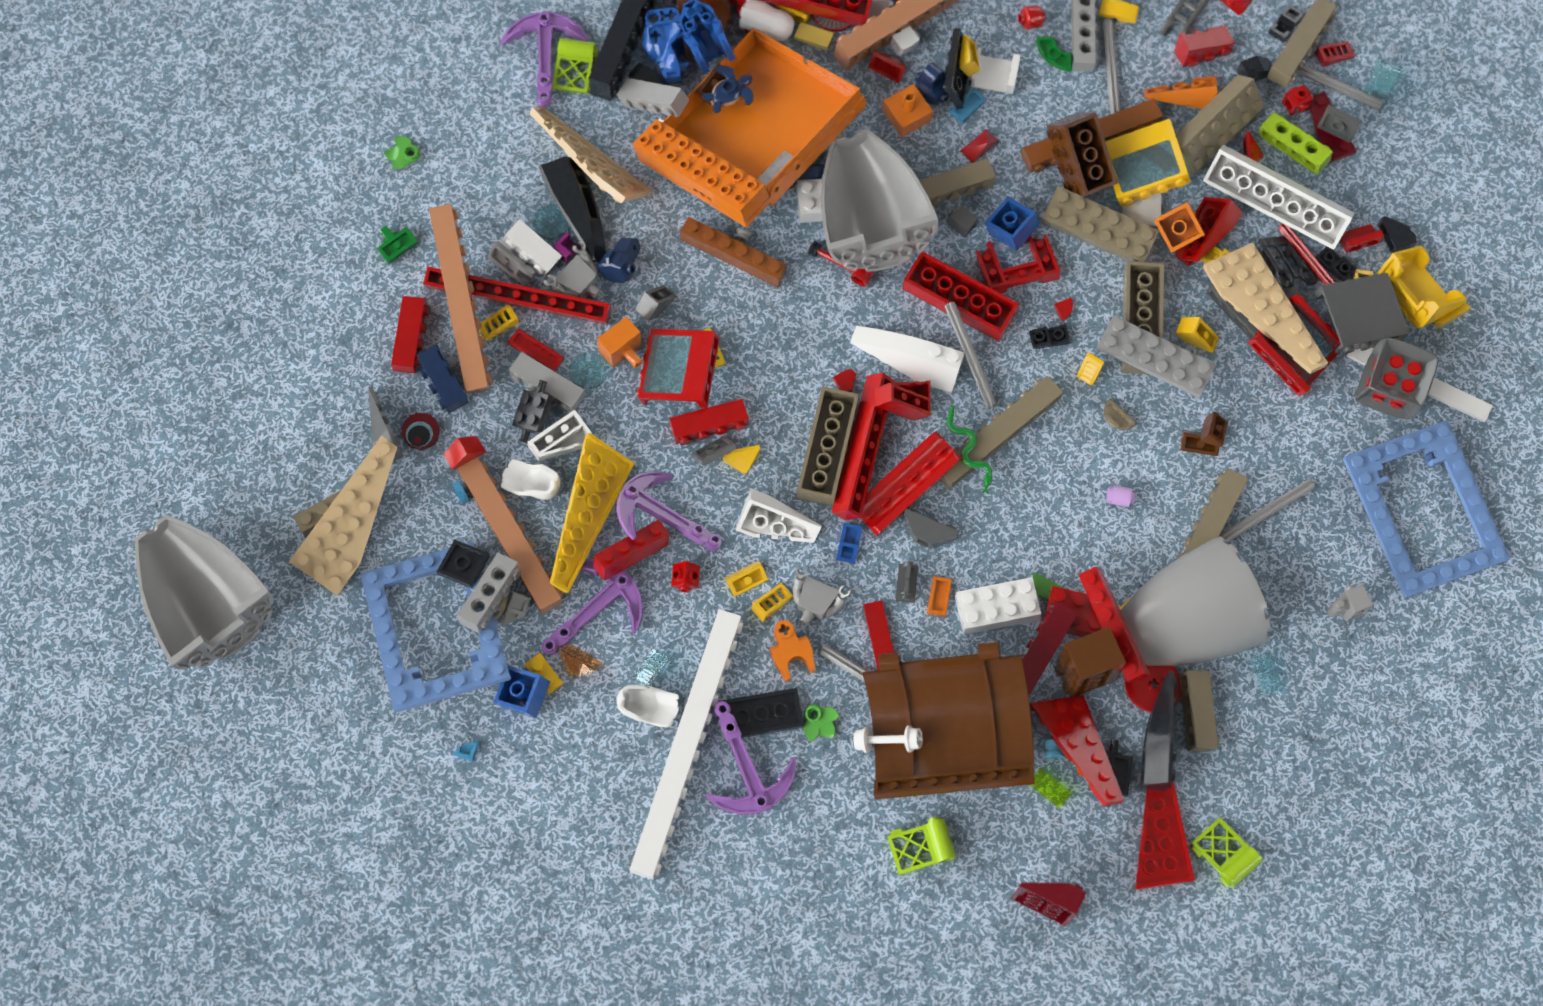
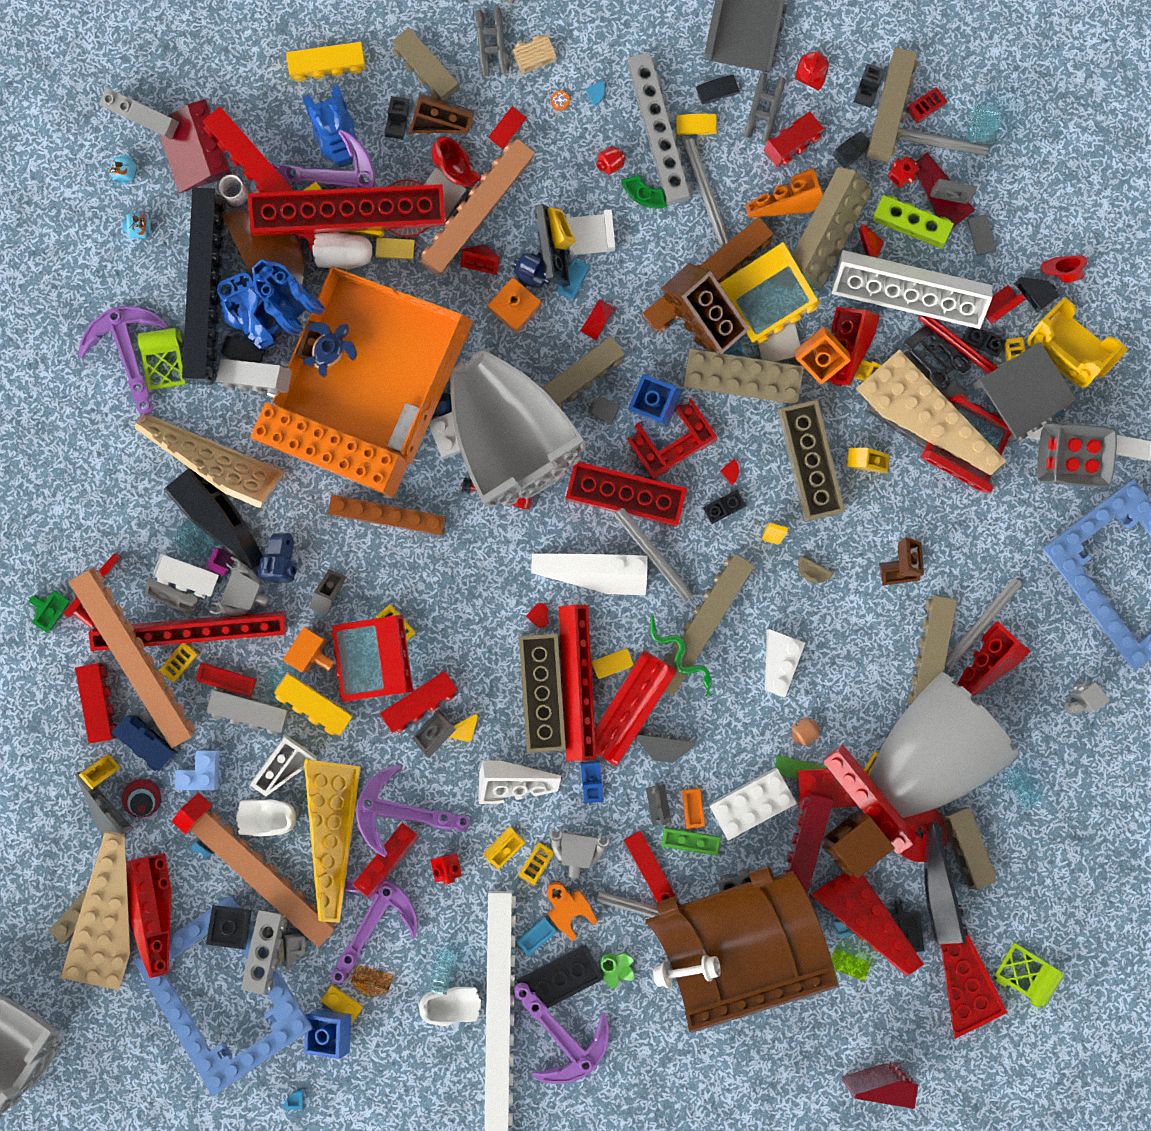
camera: 20 degrees left, 15 degrees up
(391, 393) = (99, 771): none -> yellow slope
(394, 528) = (150, 910): none -> red wedge
(400, 153) = (19, 510): bright green plate -> none
(420, 247) = (75, 607): none -> red piece
(485, 426) = (205, 774): none -> light blue brick
(532, 411) = (244, 748): black plate -> none
(610, 392) = (312, 703): none -> yellow brick
(751, 668) = (536, 936): none -> dark azure tile
(900, 443) = (612, 663): none -> yellow slope
(905, 41) = (490, 227): white brick -> none
(905, 399) = (603, 622): red wedge -> none
(928, 626) = (691, 841): none -> bright green tile
(937, 839) = (758, 1047): lime piece -> none
(1064, 485) = (781, 661): none -> white wedge
(1068, 557) = (805, 731): none -> nougat head
(1120, 495) = (838, 653): lavender brick -> none
(1156, 356) = (836, 503): light grey plate -> none
(1277, 542) = (996, 658): none -> red wedge
(1357, 174) = (981, 235): none -> dark grey tile
(1429, 224) = (1065, 268): none -> red piece

